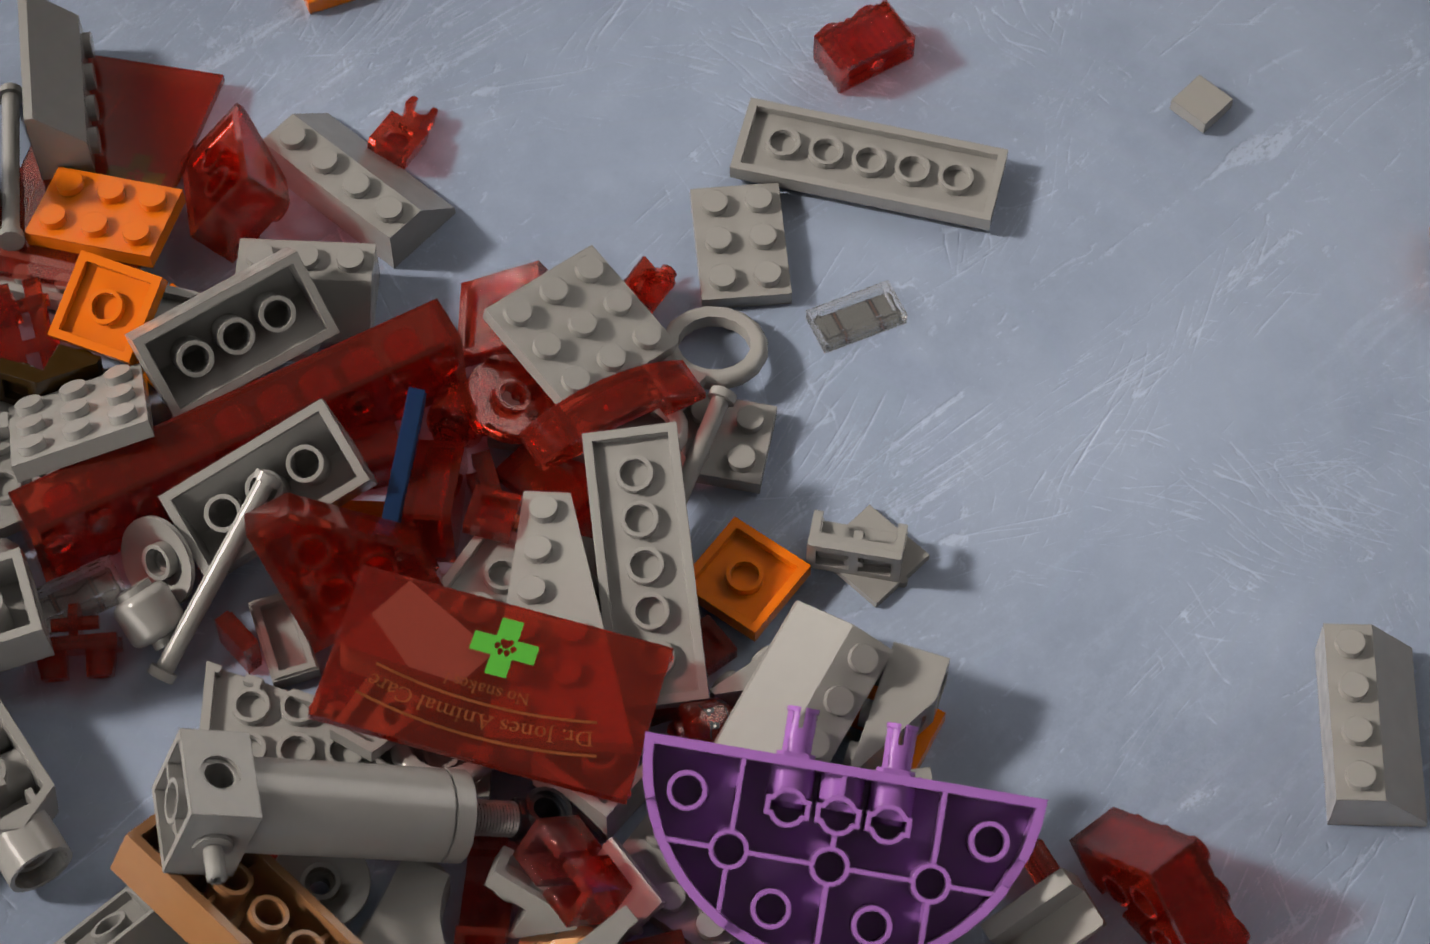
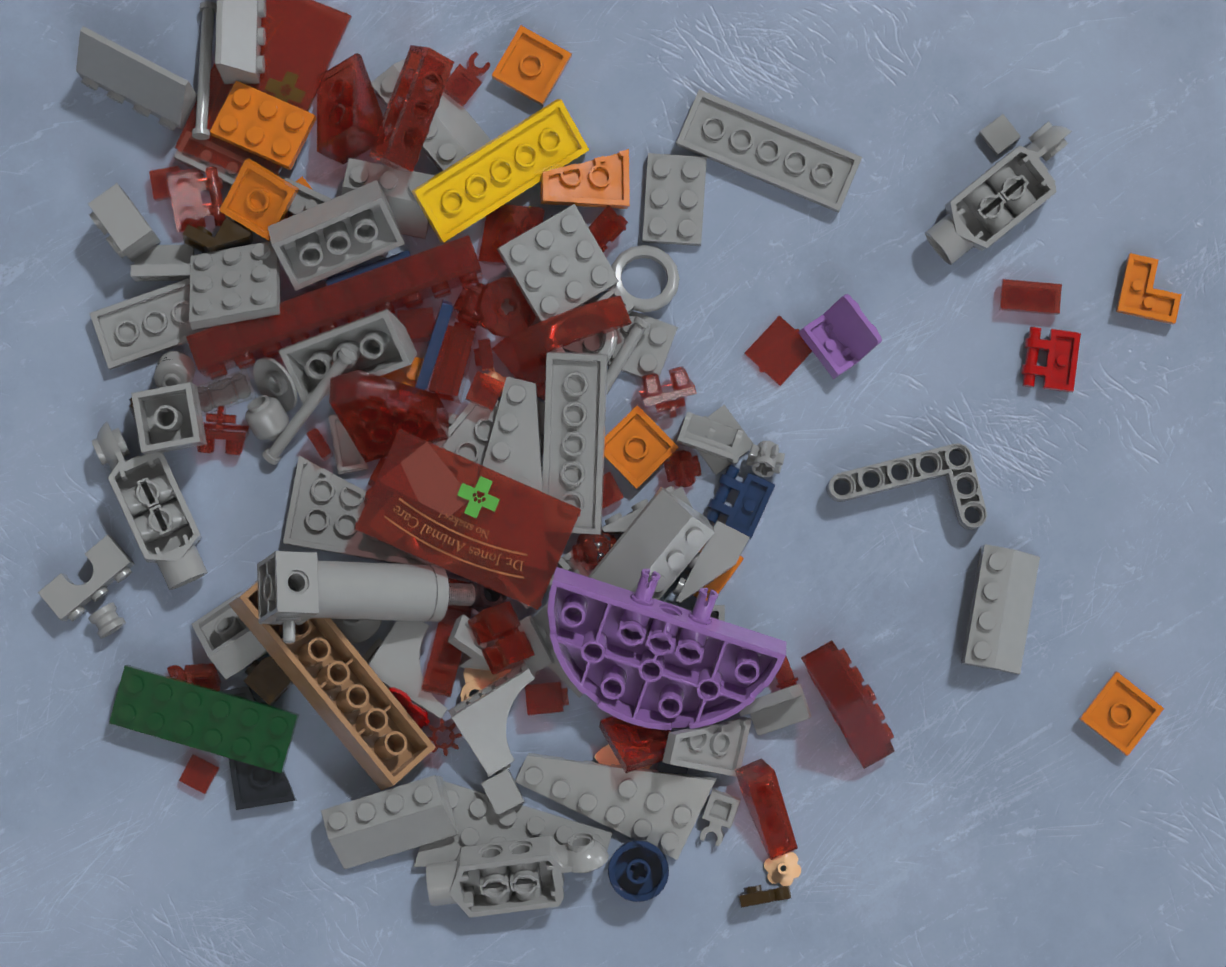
camera: 10 degrees right, 25 degrees up
(327, 147) = (411, 108): none -> clear red brick
(472, 225) = (499, 170): none -> yellow plate
(499, 103) = (531, 65): none -> orange plate
(617, 232) = (589, 184): none -> orange wing
(796, 481) = (654, 393): none -> clear red hips
(824, 590) = (682, 468): none -> clear red gear
(856, 316) = (740, 264): clear tile -> none
(863, 45) = (781, 56): clear red brick -> none
(939, 422) = (779, 351): none -> clear red piece
(939, 619) = (749, 504): none -> dark blue plate
(962, 559) = (765, 459): none -> light grey gear
(1033, 374) = (841, 336): none -> medium lavender bracket
(1191, 556) = (915, 474): none -> light grey beam
(1220, 170) = (998, 197): none -> light grey brick
(1301, 296) = (1030, 297): none -> clear red plate
(1369, 371) = (1060, 362): none -> red plate

